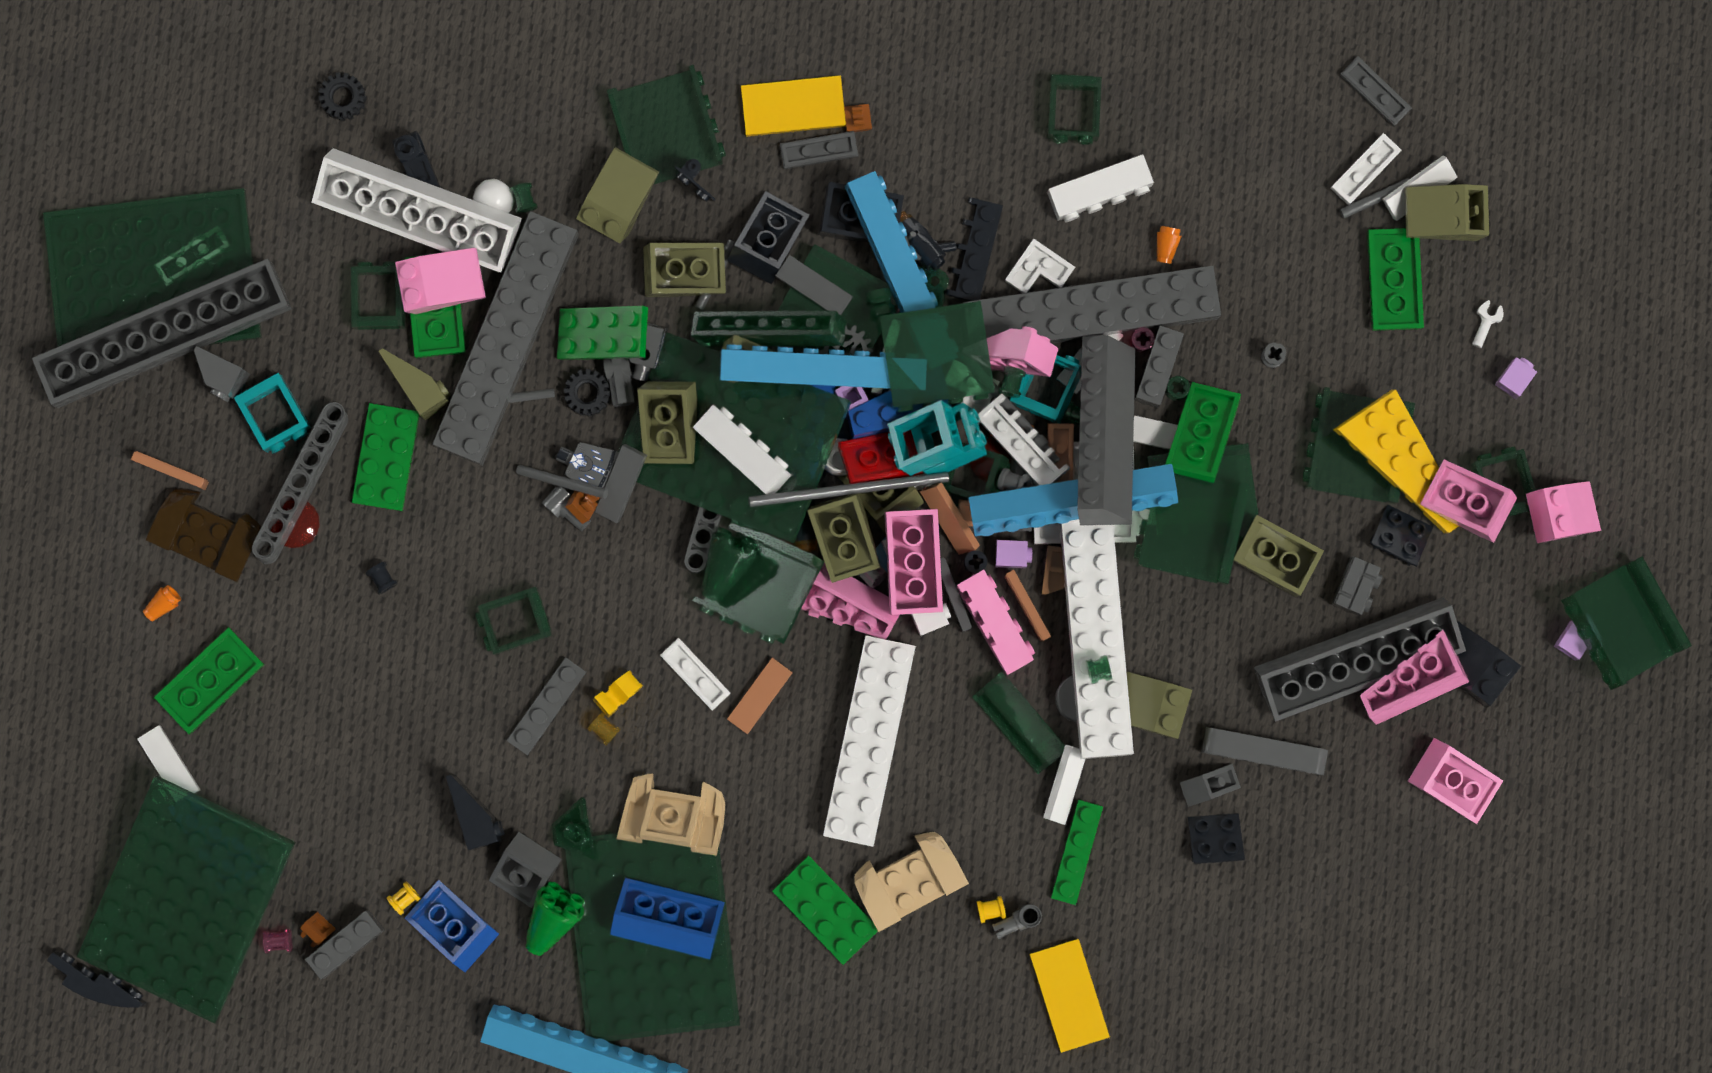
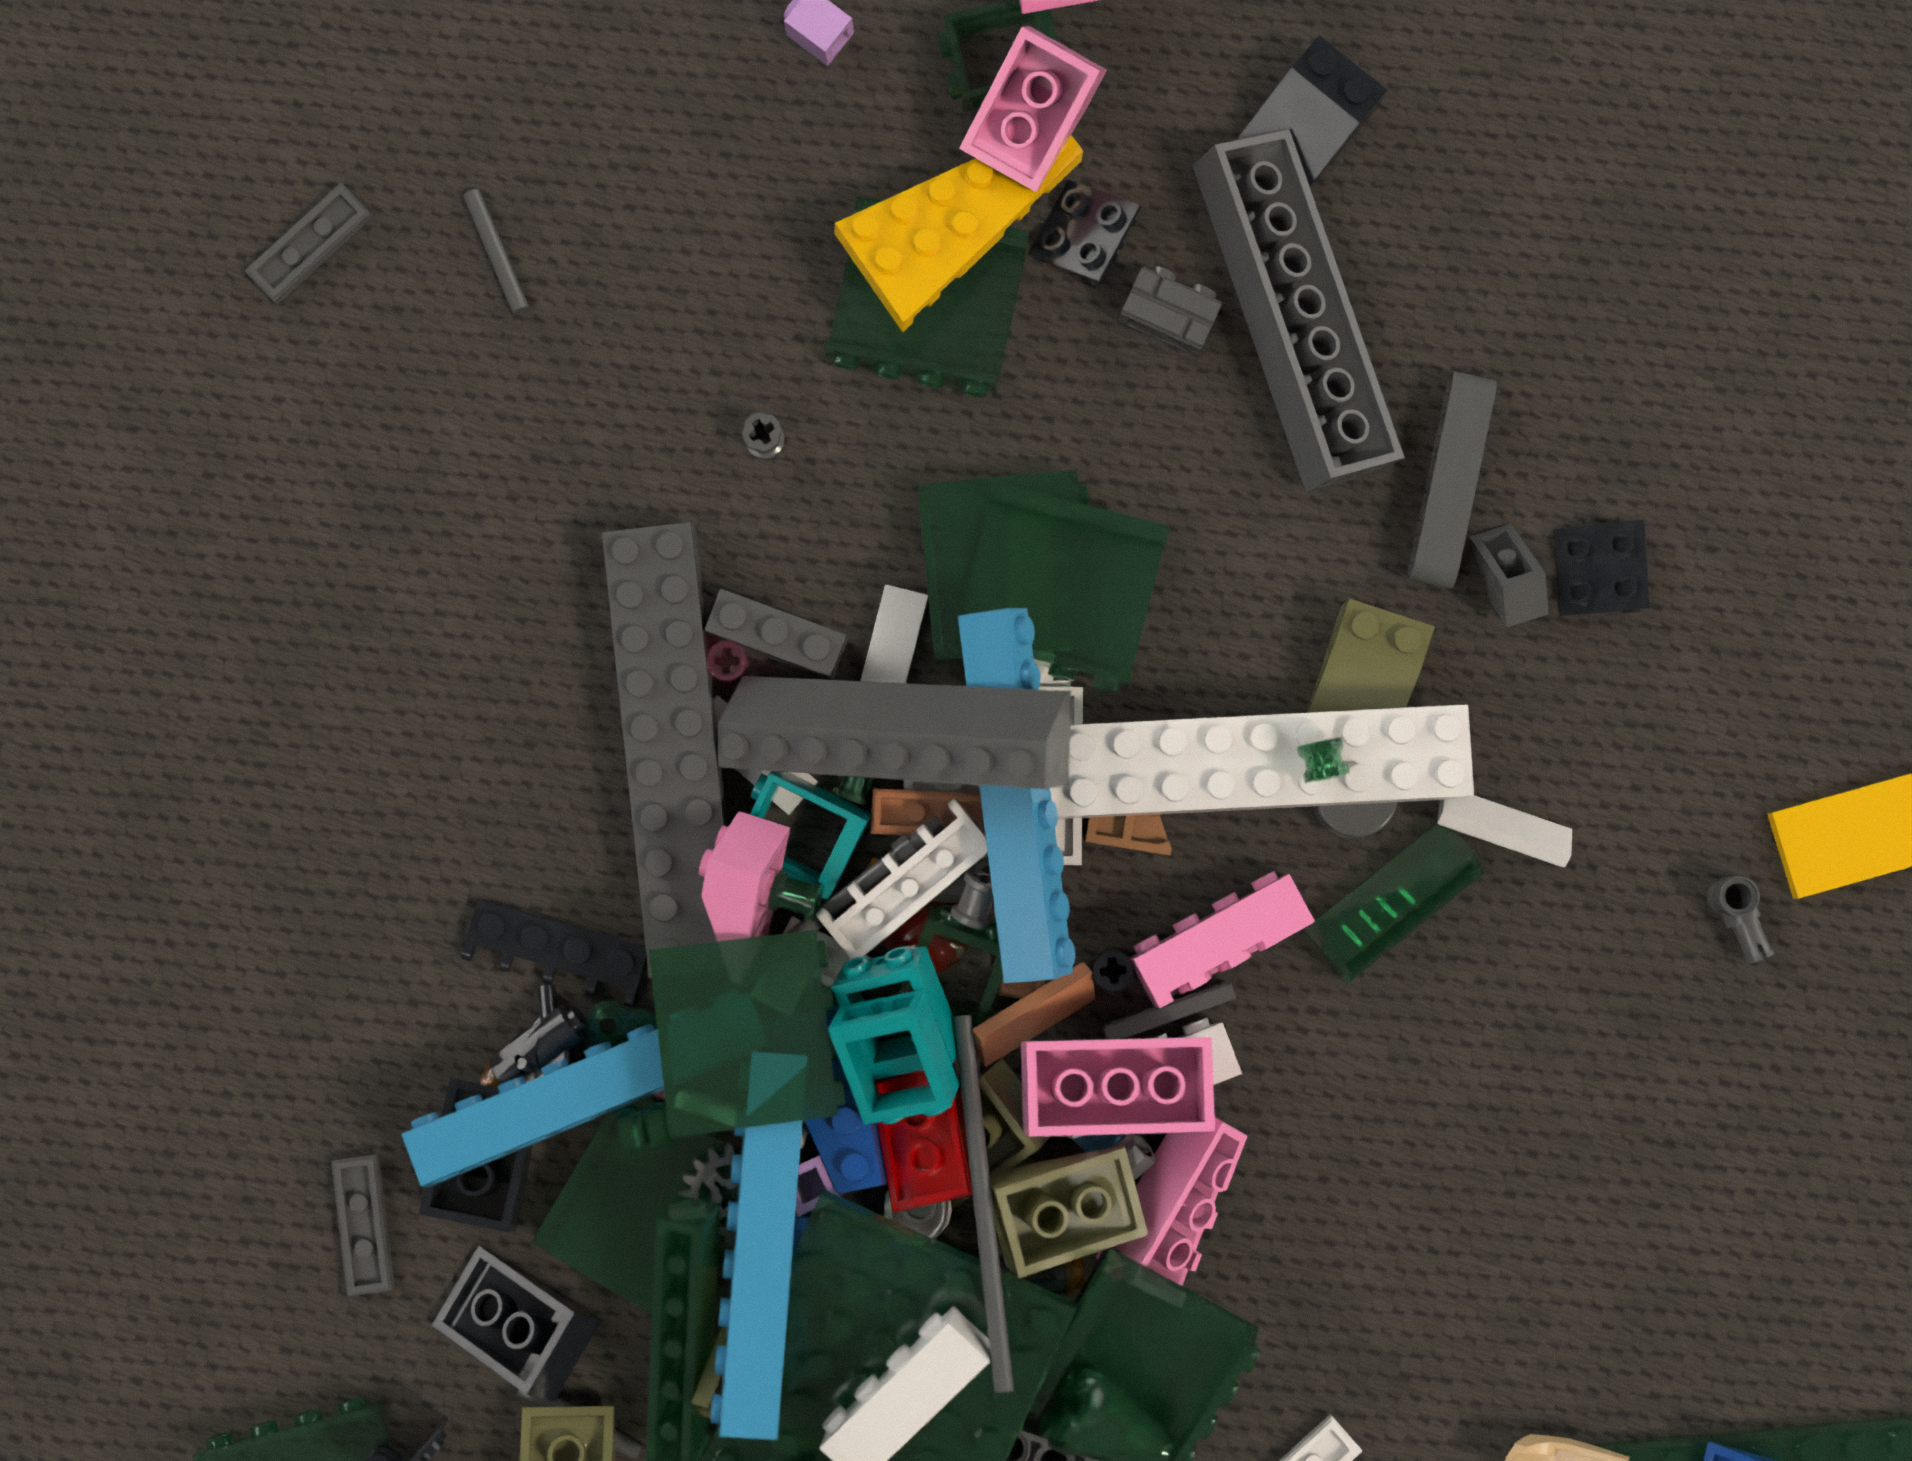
camera: 85 degrees left, 0 degrees up
(759, 696) = (1337, 1362): nougat tile -> none
(793, 106) = (280, 1269): yellow tile -> none
(813, 286) = (608, 1247): dark grey tile -> none
(825, 910) = (1717, 1255): green plate -> none
(858, 118) = (308, 1152): dark orange tile -> none
(869, 741) = (1427, 1171): white brick -> none
(909, 881) = (1671, 1109): tan piece -> none
(991, 909) = (1721, 964): yellow bush -> none
(1013, 554) = (1099, 903): lavender brick -> none
(1027, 606) = (1191, 881): nougat tile -> none
(1039, 261) = (581, 843): white plate -> none
(1074, 83) = (266, 764): clear green window -> none
(1076, 852) = (1620, 810): green plate -> none
(1100, 188) = (455, 726): white brick -> none
(1167, 243) = (559, 612): orange cone -> none
(1176, 381) = (816, 590): clear green bush -> none
(1203, 432) = (897, 562): green plate -> none
(1278, 556) = (1118, 439): olive slope -> none
(1366, 169) = (444, 264): white plate -> none
(1395, 280) = (638, 223): green plate -> none
(1415, 681) = (1336, 205): bright pink wedge -> none
(1436, 174) = (481, 174): white tile -> none
(1447, 212) = (525, 125): olive slope -> none
(1455, 780) = (1507, 160): bright pink slope -> none
(1486, 322) = (719, 74): white bar -> none

